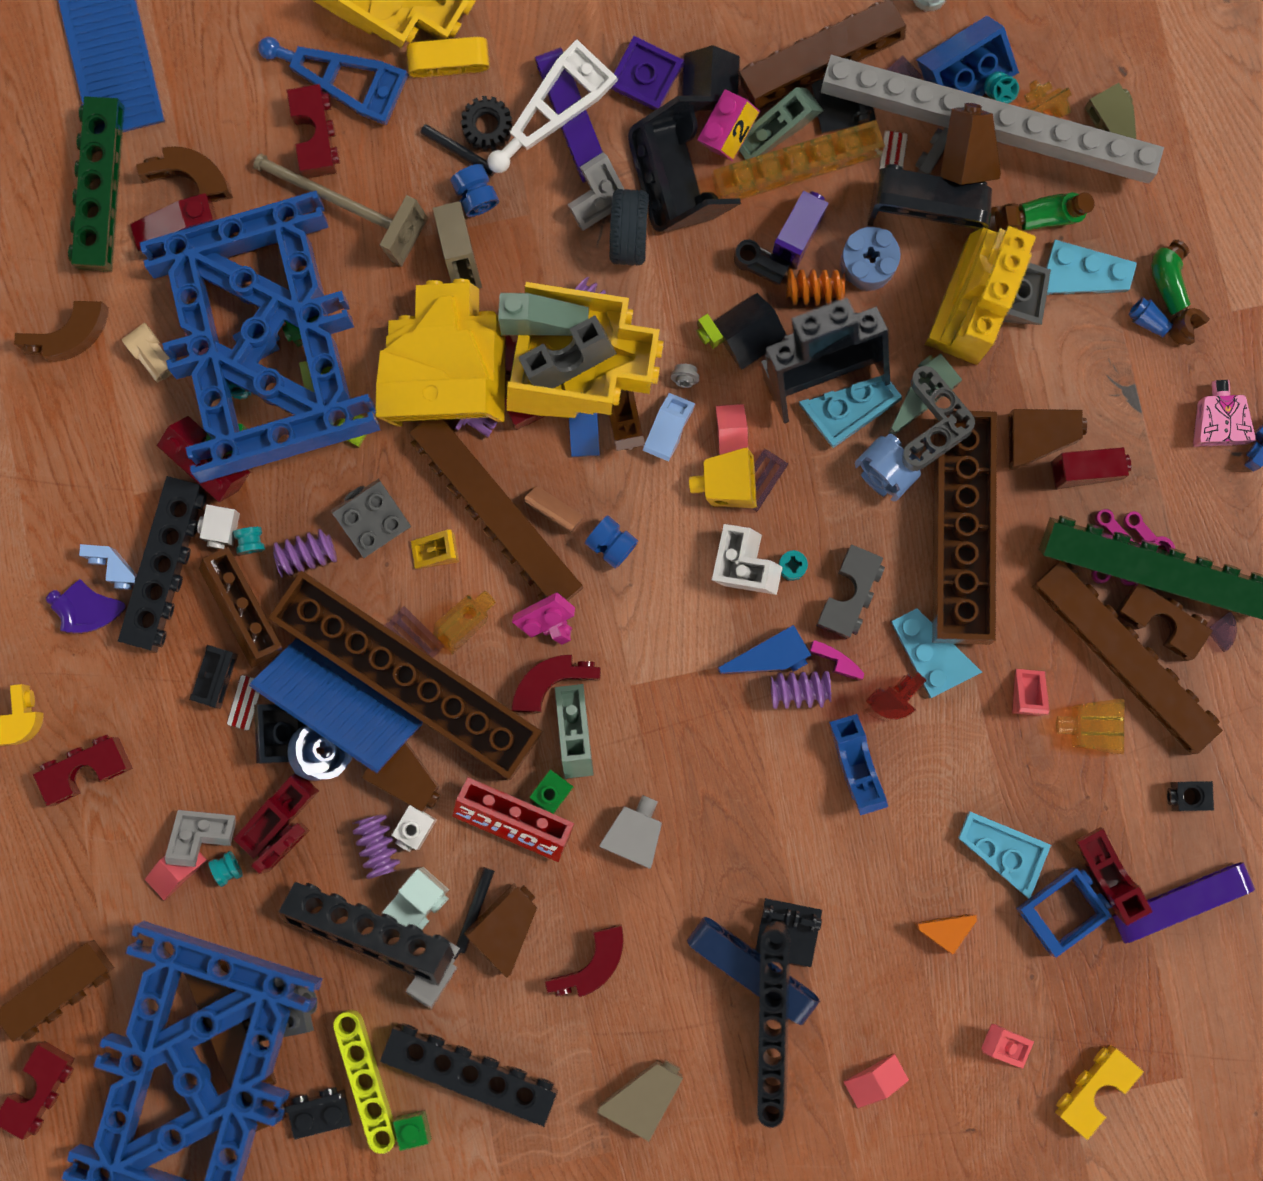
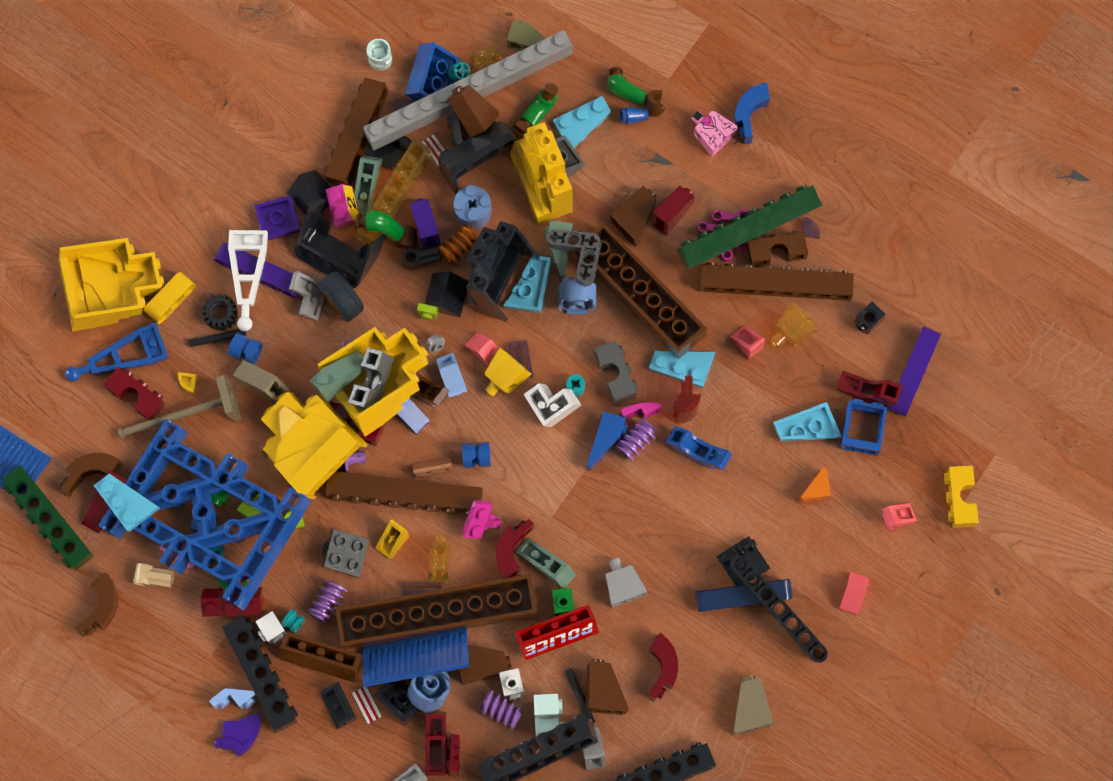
camera: 45 degrees left, 10 degrees down
(185, 245) = (125, 502): none -> medium azure wing
(382, 170) = (187, 381): none -> yellow tile
(753, 193) = (385, 224): none -> green piece

